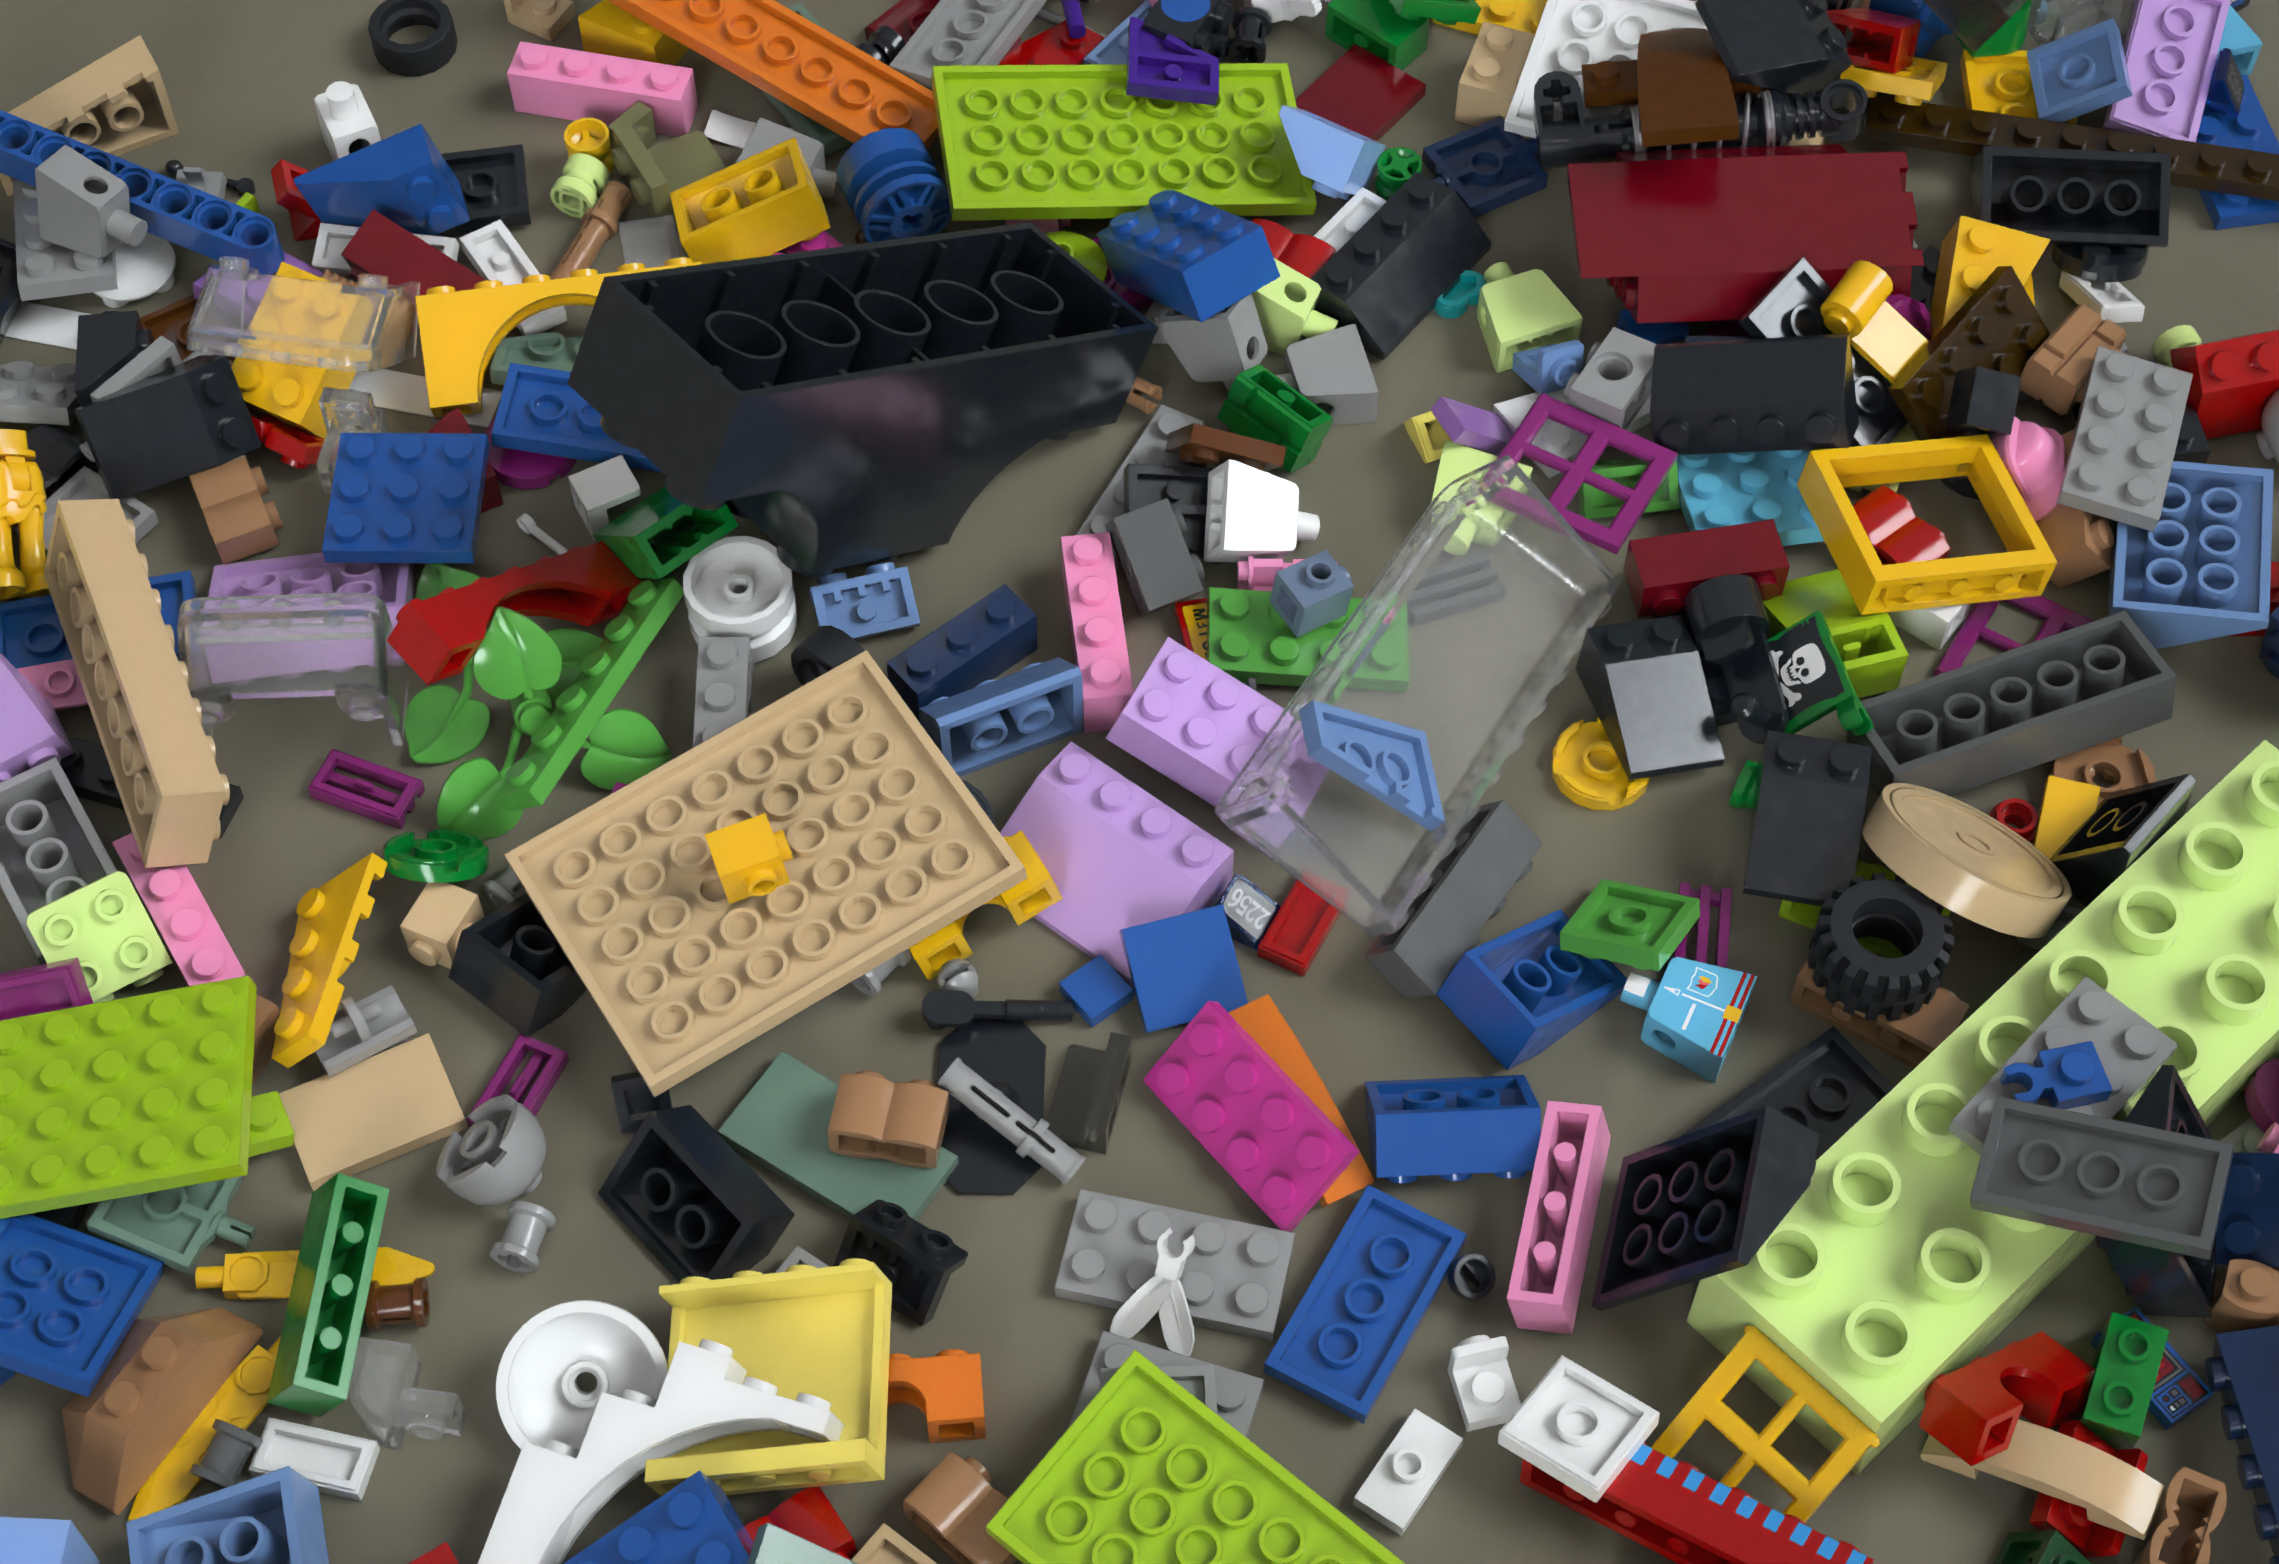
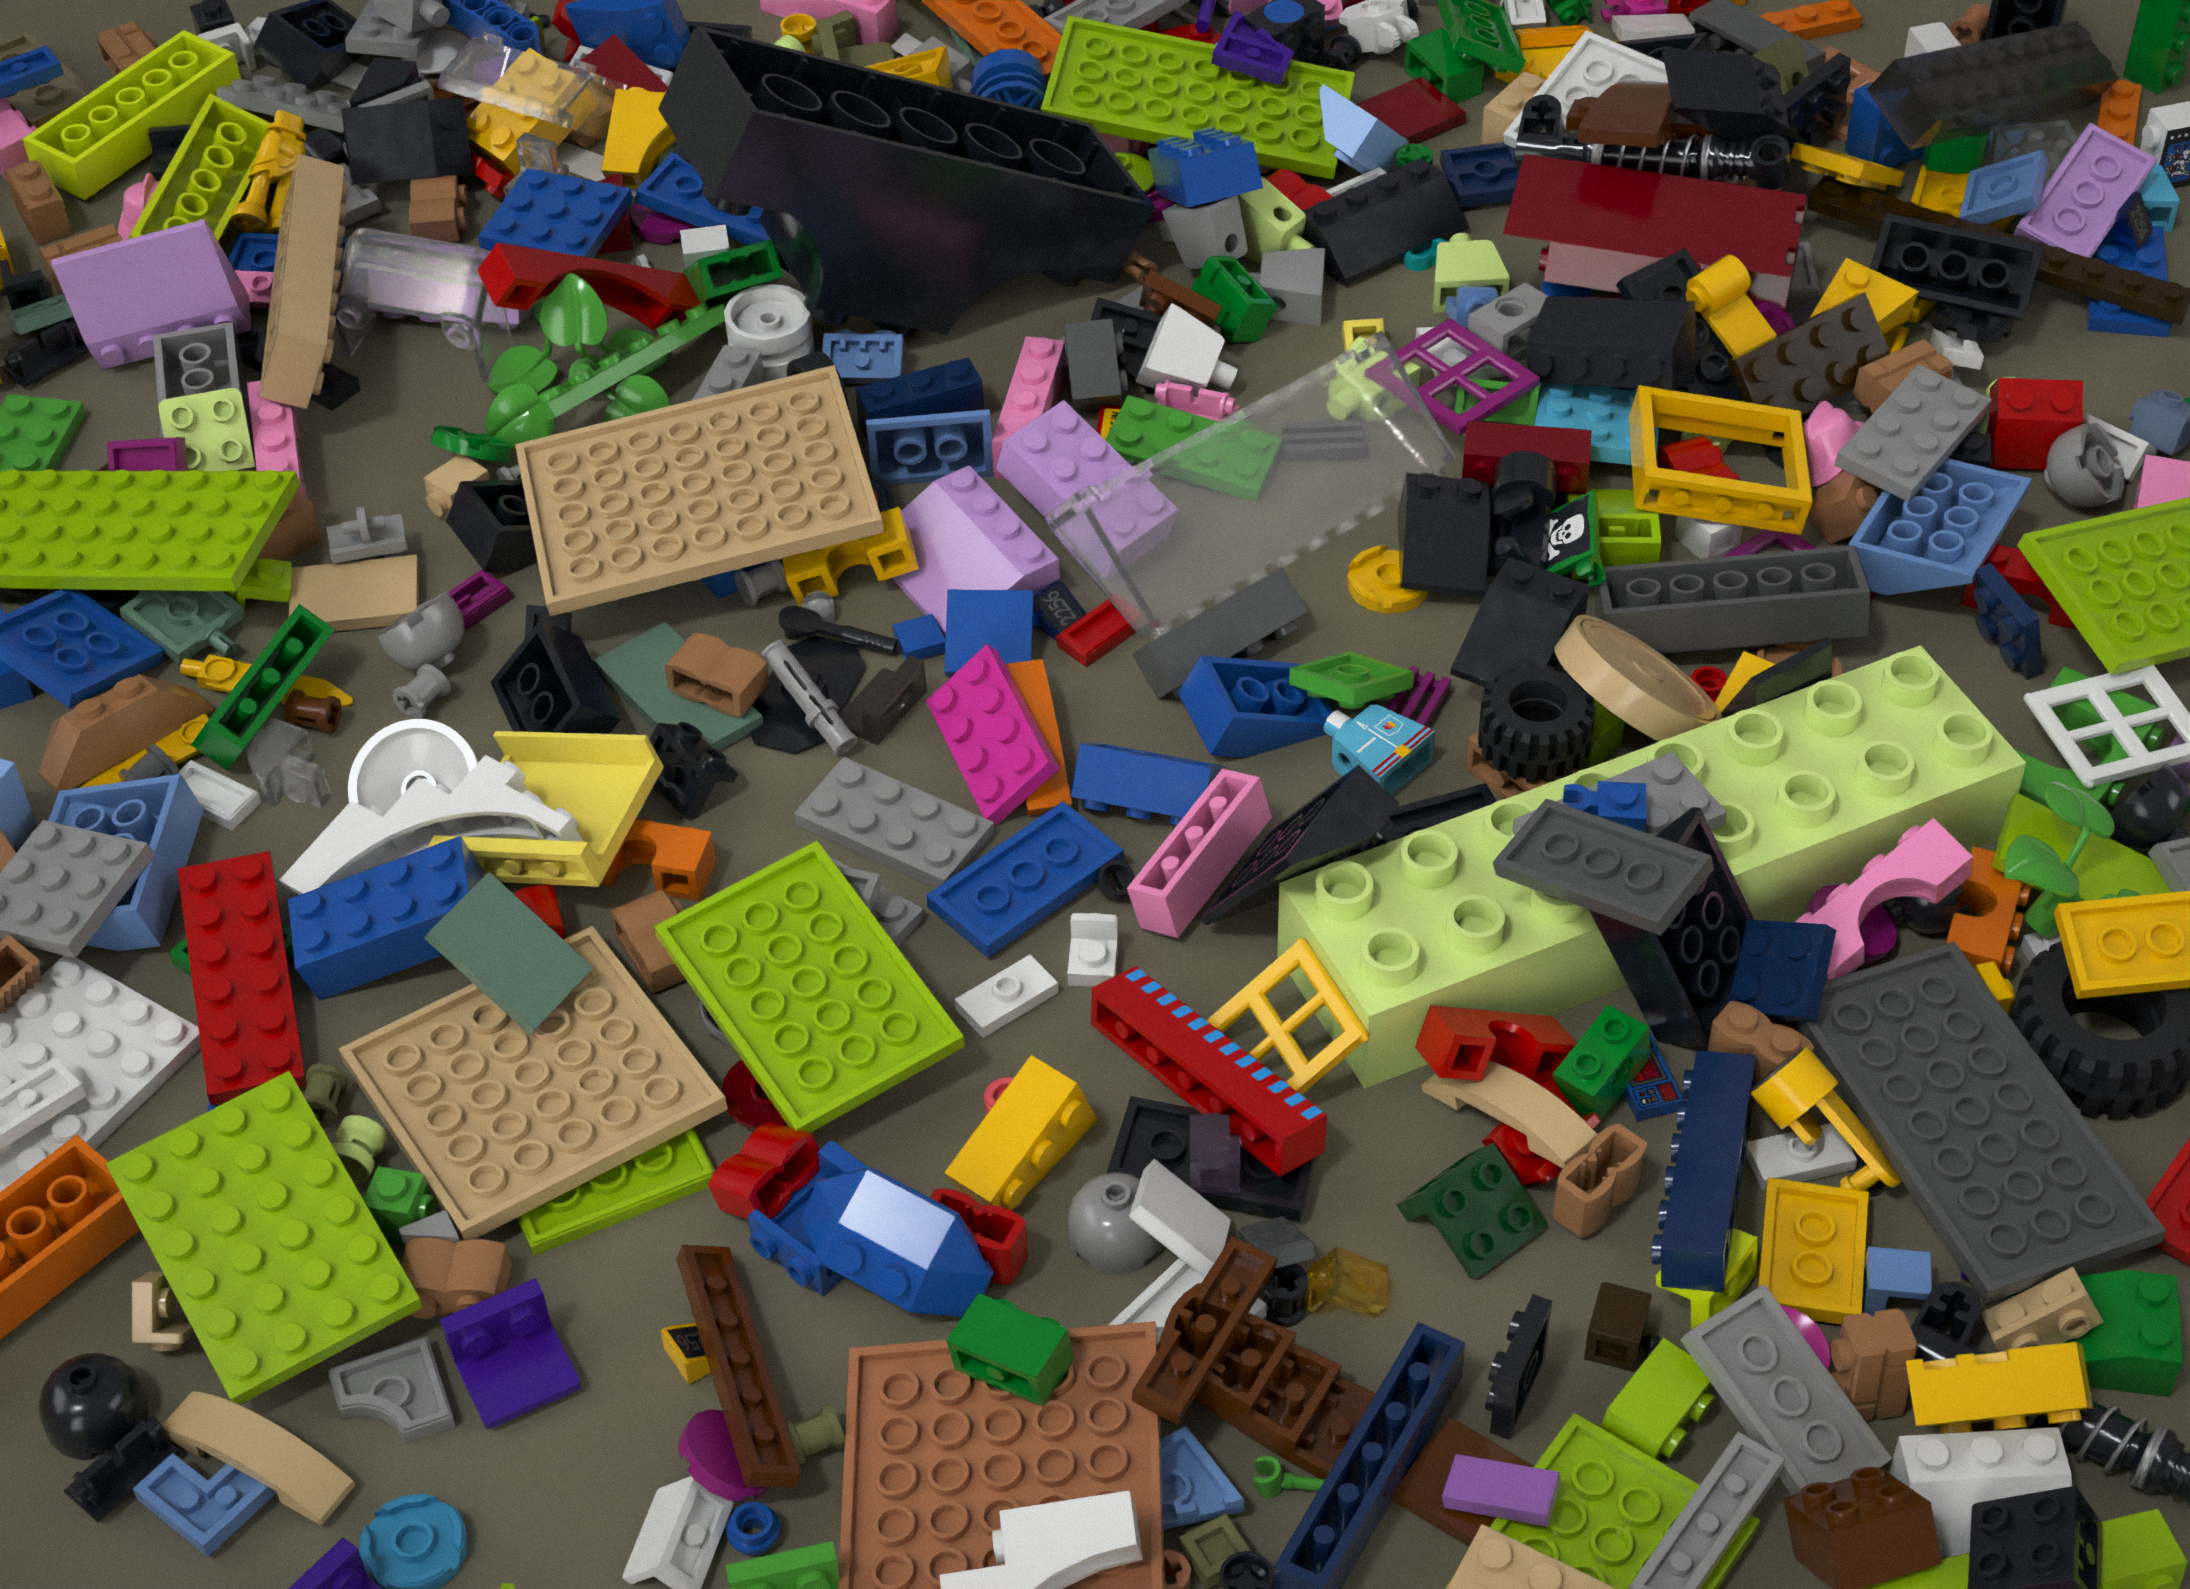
camera: 20 degrees right, 10 degrees down
(321, 956) = (357, 483): yellow wing -> none
(397, 805) = (442, 403): magenta tile -> none
(749, 858) = (681, 470): yellow brick -> none
(1161, 1294) = (869, 831): white piece -> none
(1312, 593) = (1199, 405): sand blue brick -> none
(1377, 757) = (1189, 511): medium blue wing -> none
(1471, 425) = (1373, 321): medium lavender tile -> none
(1578, 1428) = (1140, 982): white tile -> none
(1879, 38) = (1844, 136): red torso -> none
(1983, 402) = (1802, 383): black panel -> none

